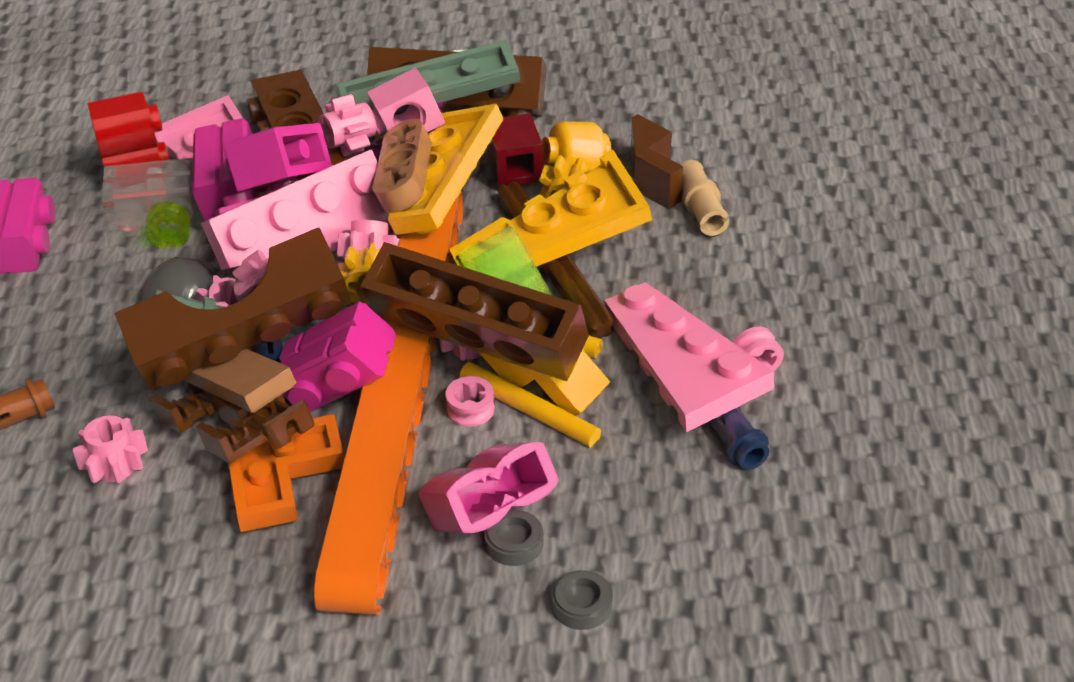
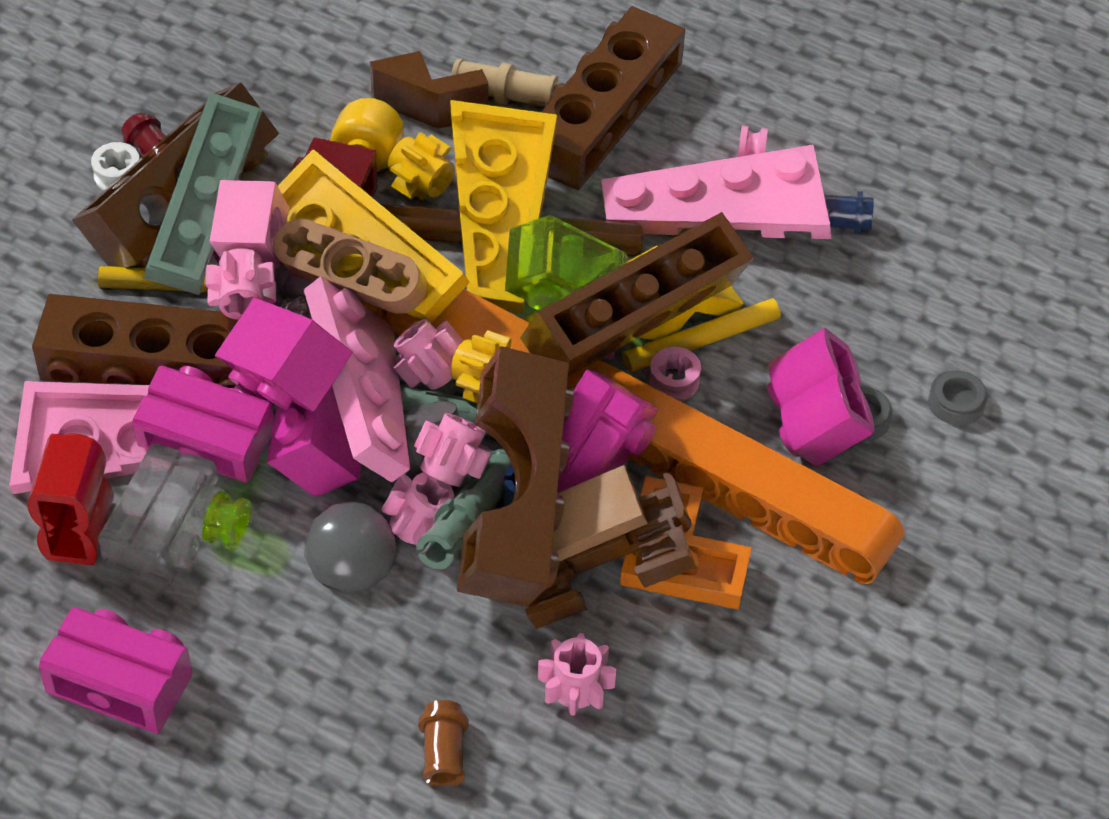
camera: 65 degrees left, 10 degrees up
(737, 249) = (611, 92): none -> reddish brown brick

